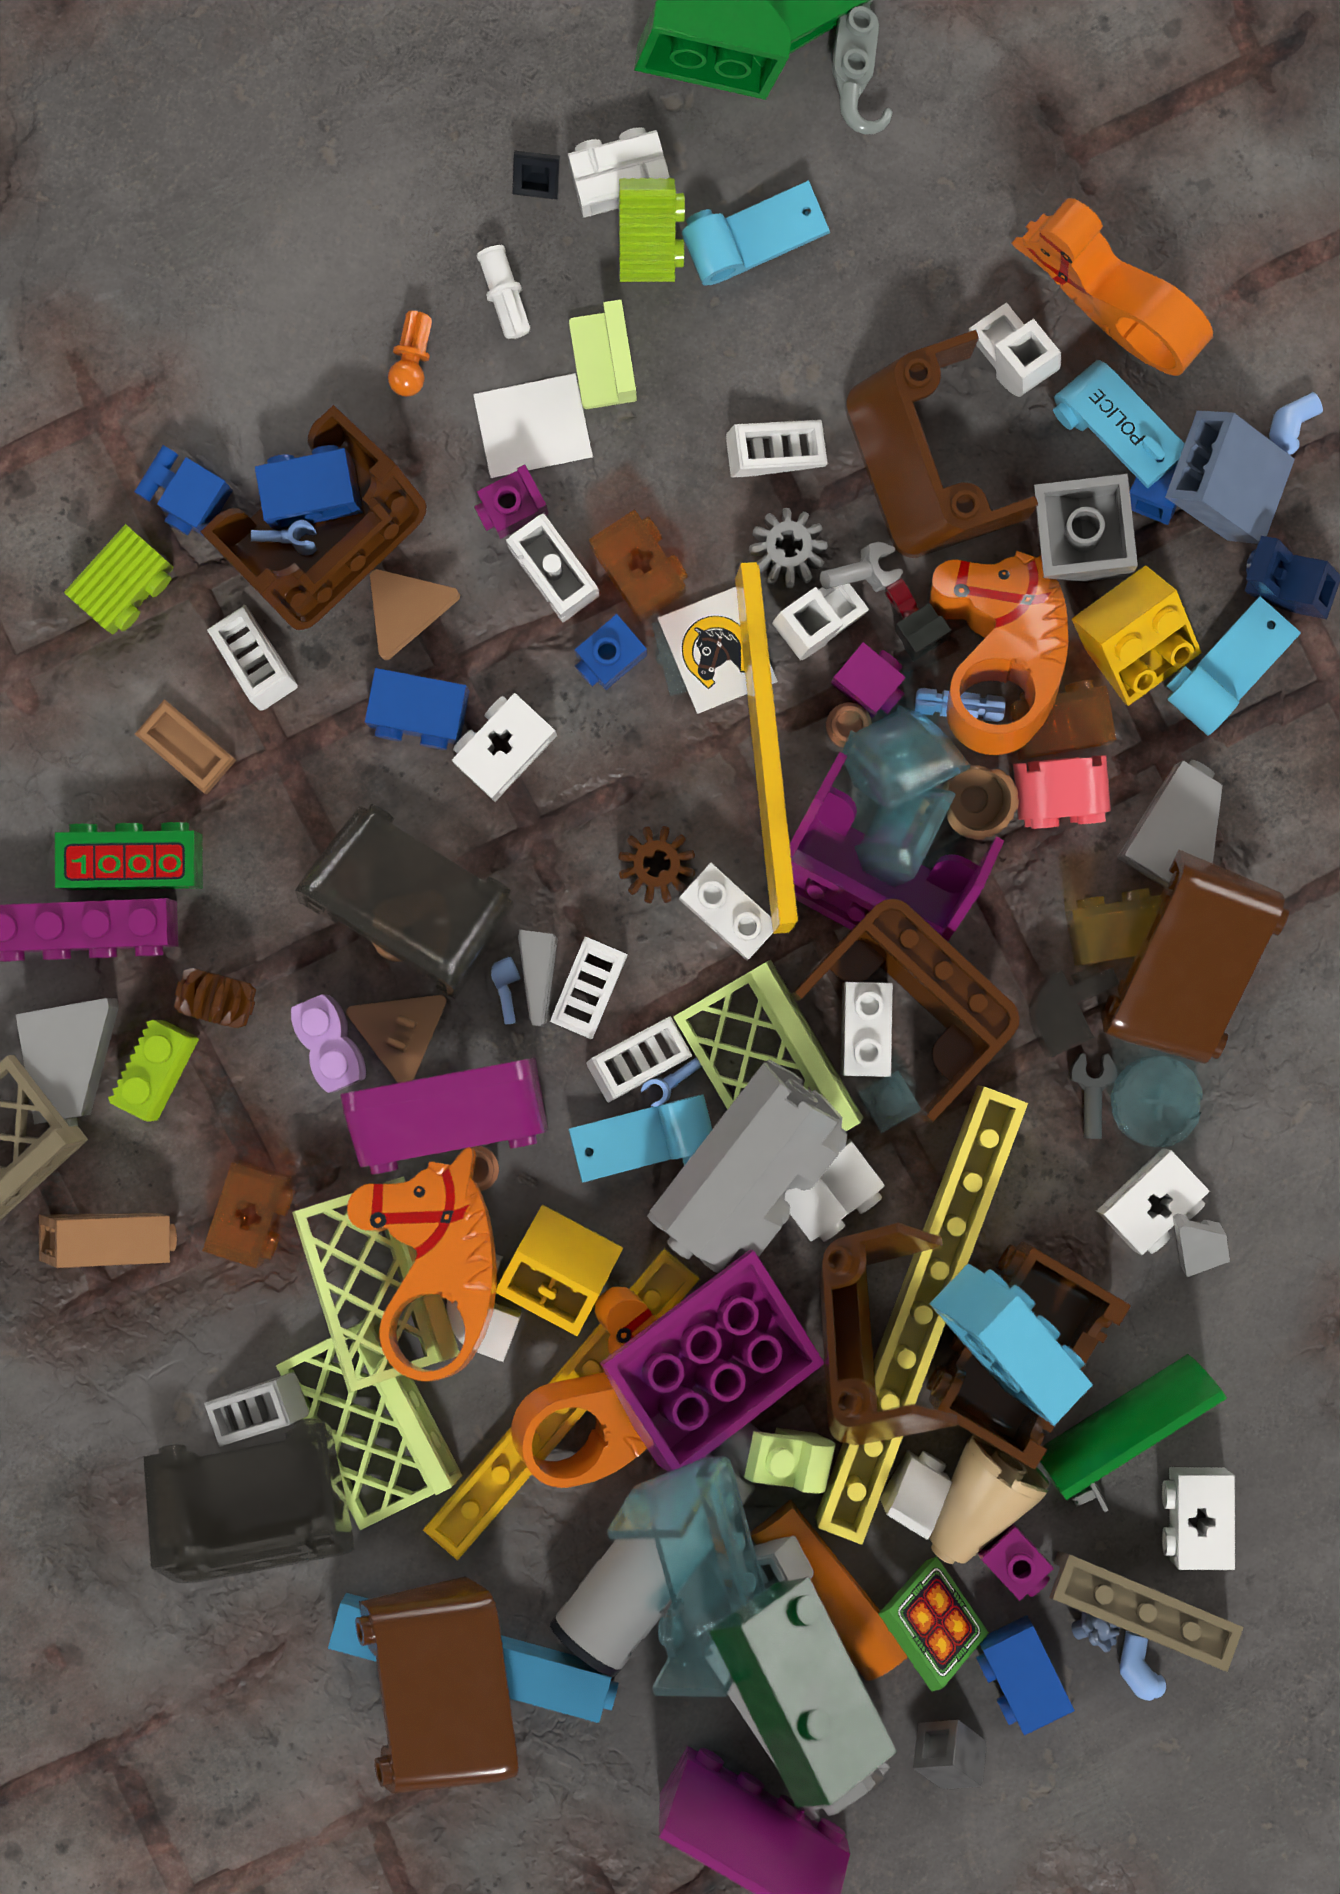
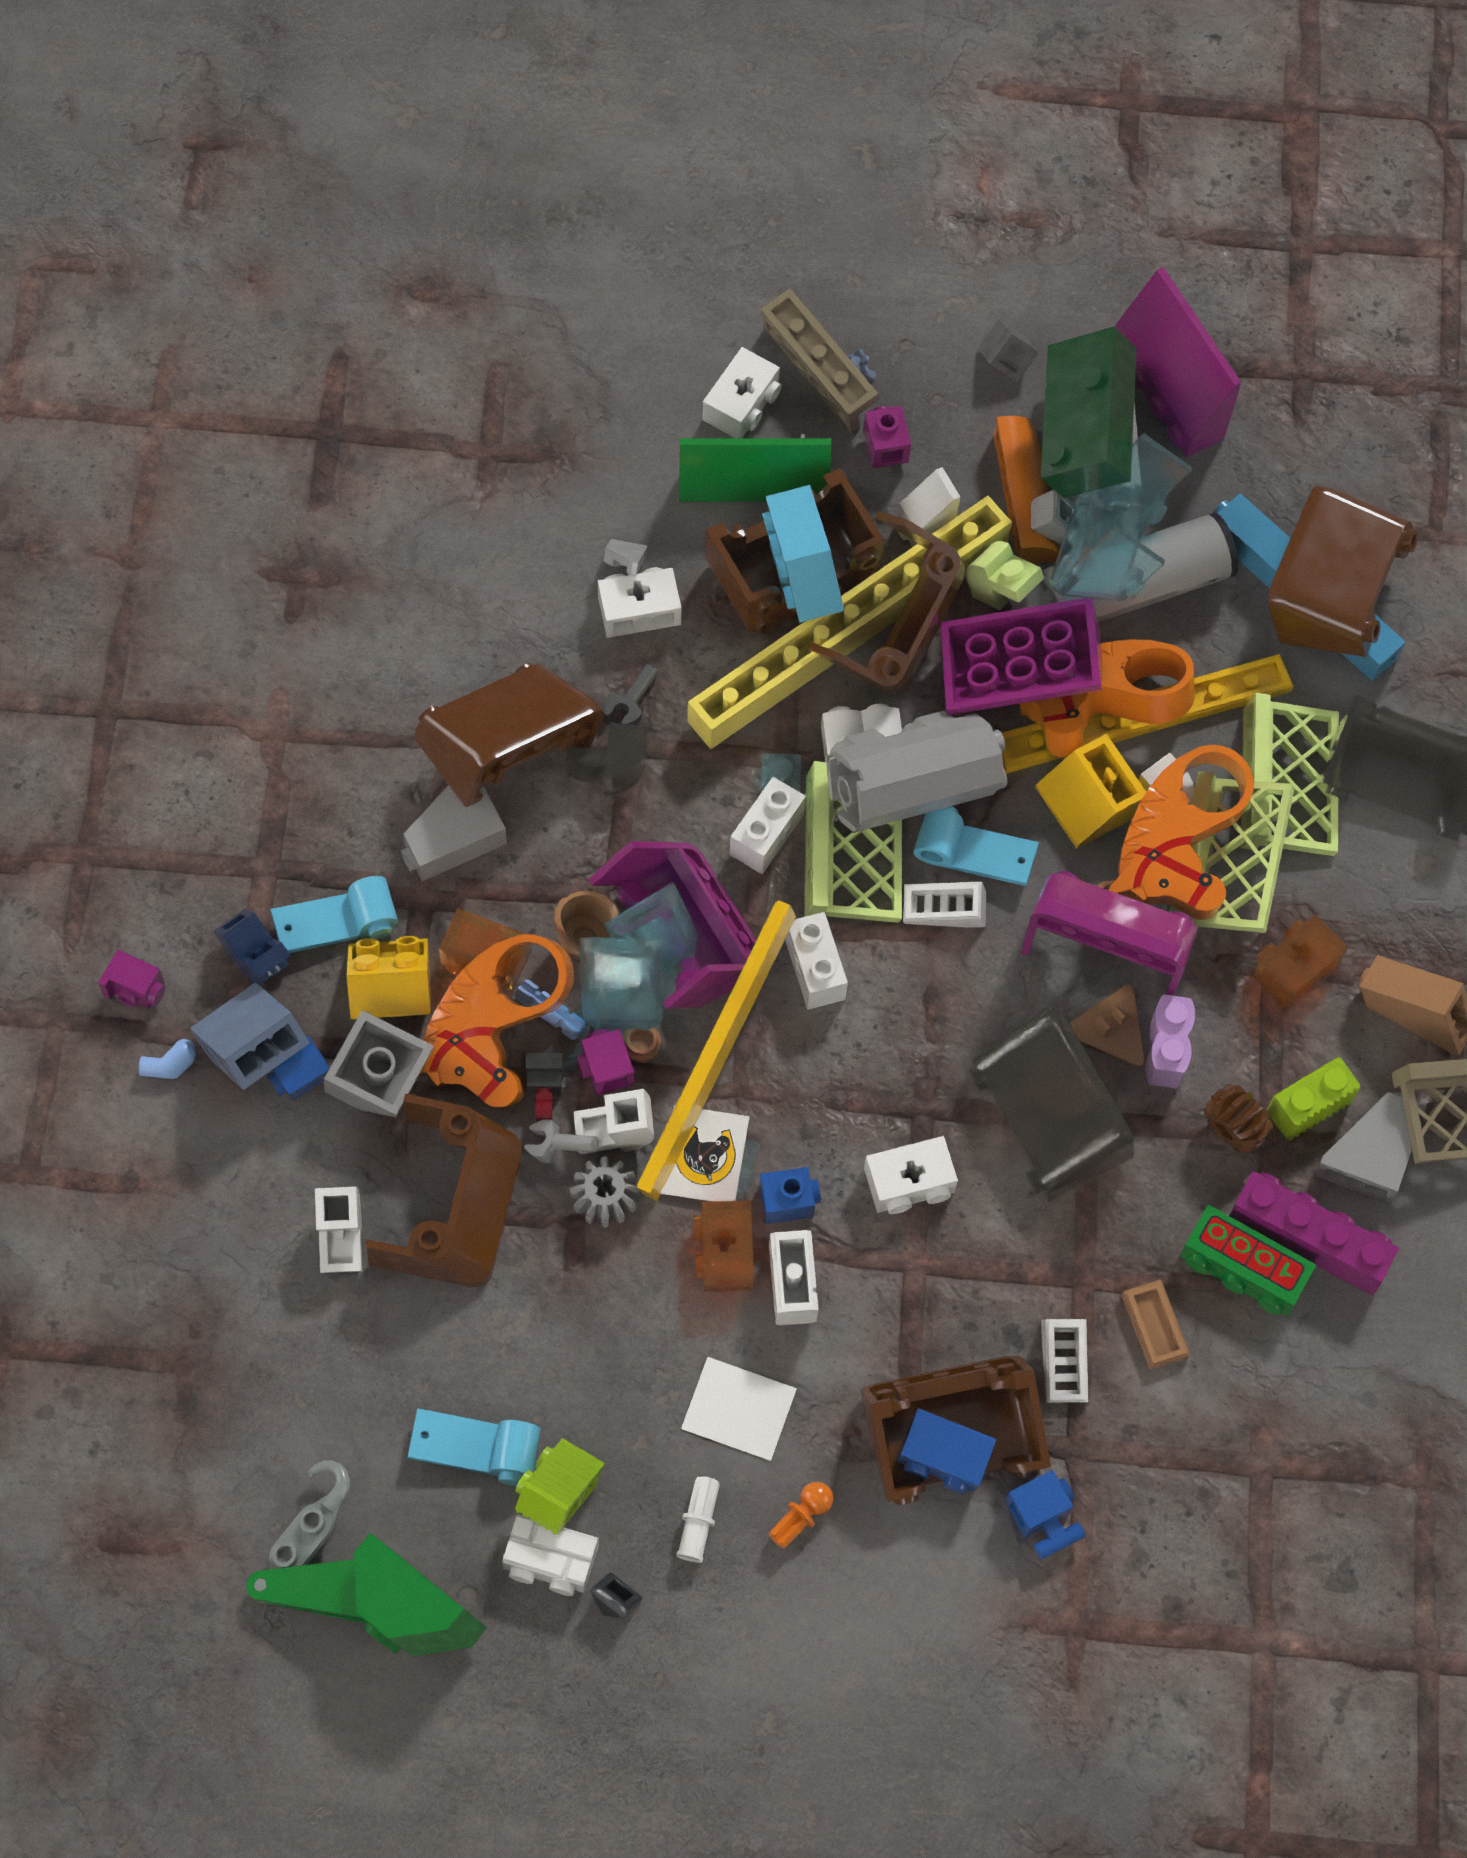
camera: 155 degrees left, 20 degrees down
(120, 581) = (1135, 1474): lime brick -> none
(282, 1399) = (1345, 828): light grey slope -> none
(289, 536) = (987, 1429): light blue hand -> none
(405, 608) = (924, 1320): medium nougat piece -> none
(416, 708) = (959, 1242): blue brick -> none
(505, 973) = (1009, 1019): light blue hand -> none
(527, 507) = (786, 1363): magenta brick -> none
(538, 963) = (977, 1009): light grey slope -> none
(601, 951) = (935, 999): white slope -> none
(603, 357) = (652, 1423): yellowish green panel -> none
(648, 852) = (848, 1038): reddish brown gear -> none
(672, 1080) = (931, 877): light blue hand -> none
(742, 466) = (594, 1289): white slope -> none
(933, 1624) = (968, 427): tile -> none
(936, 976) = (703, 770): reddish brown windscreen -> none
(984, 1500) = (885, 478): tan cone -> none
(1025, 1675) = (925, 368): blue brick -> none
(1062, 789) = (520, 894): coral brick -> none
(1110, 930) = (543, 790): clear yellow brick -> none
(1120, 420) = (300, 1127): medium azure door -> none
(1127, 303) = (239, 1217): orange animal -> none
(1135, 1670) = (847, 326): light blue arm -> none
(1156, 1101) = (593, 663): clear light blue tile -> none

